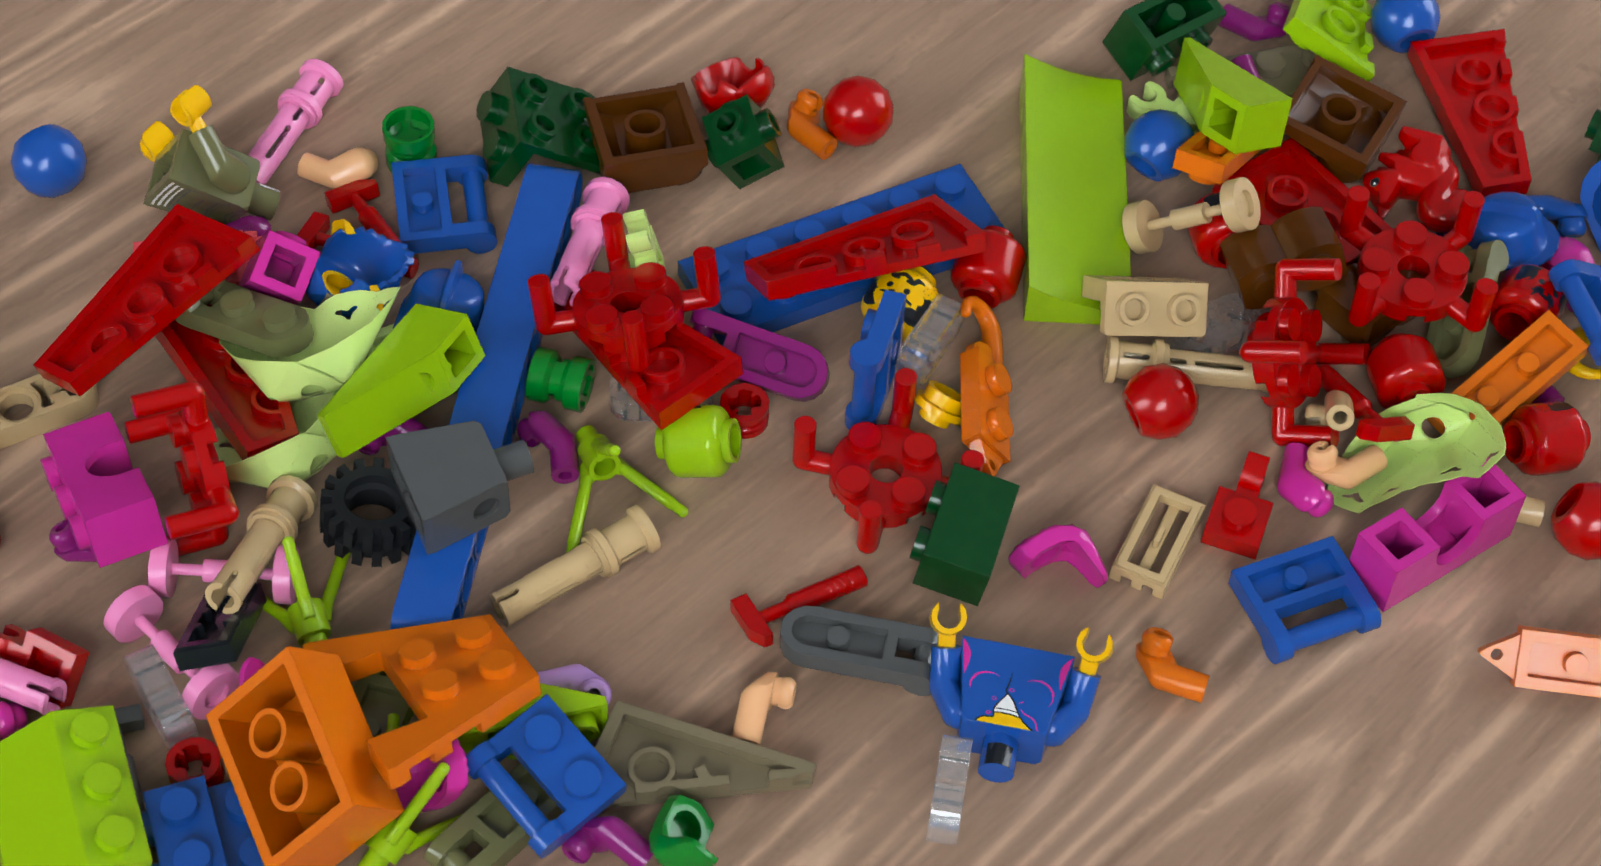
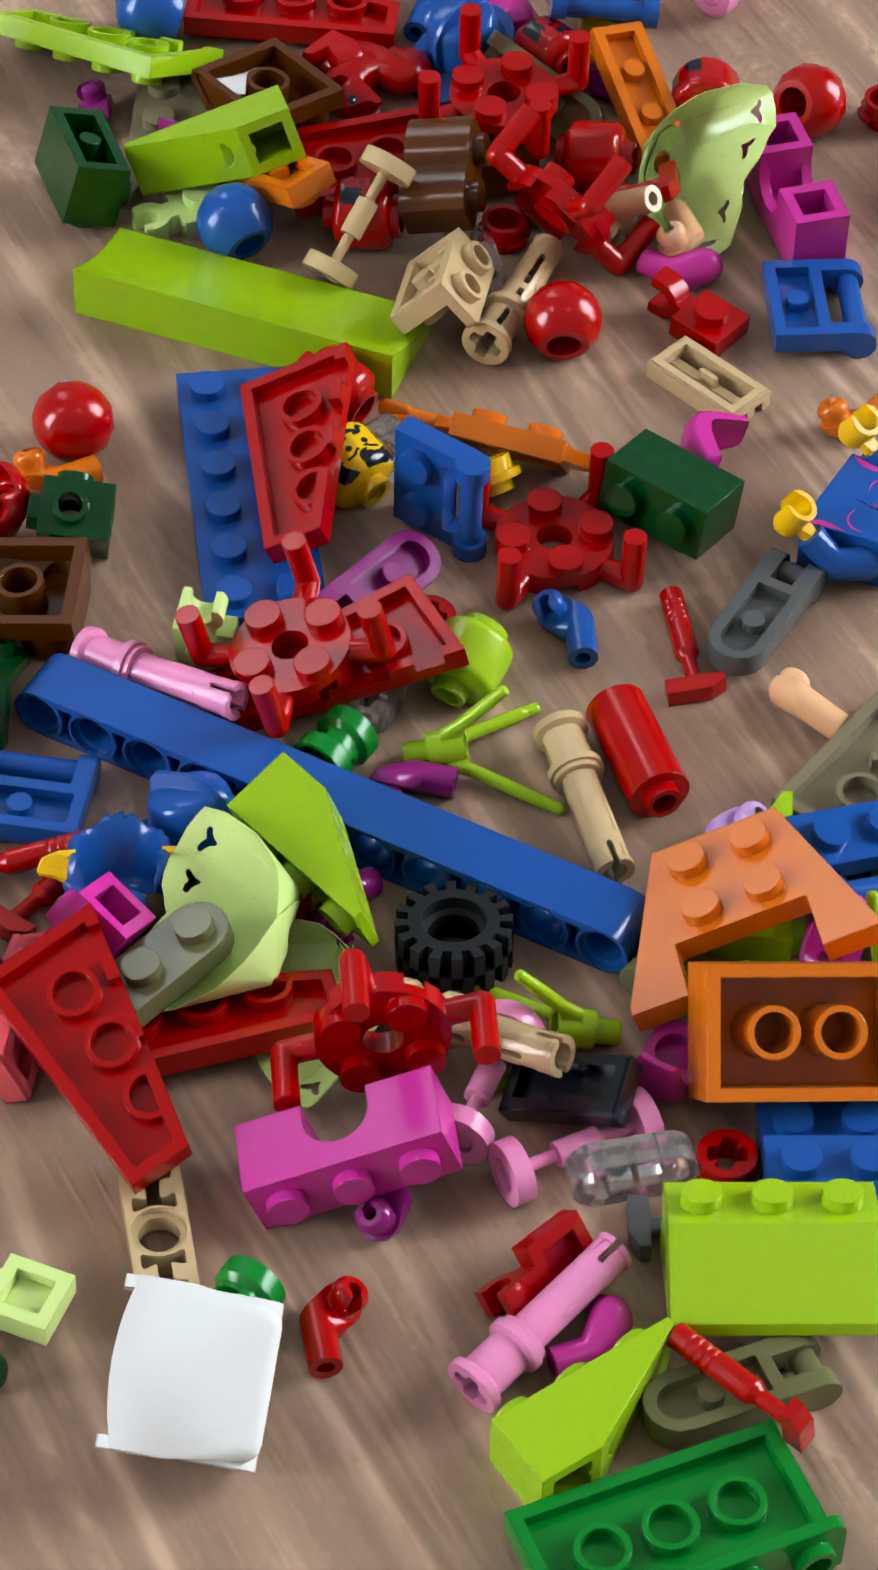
camera: 70 degrees left, 5 degrees down
(454, 480) = (484, 834): dark grey torso -> none
(639, 590) = (637, 751): none -> red brick
(789, 510) = (569, 622): none -> blue arm

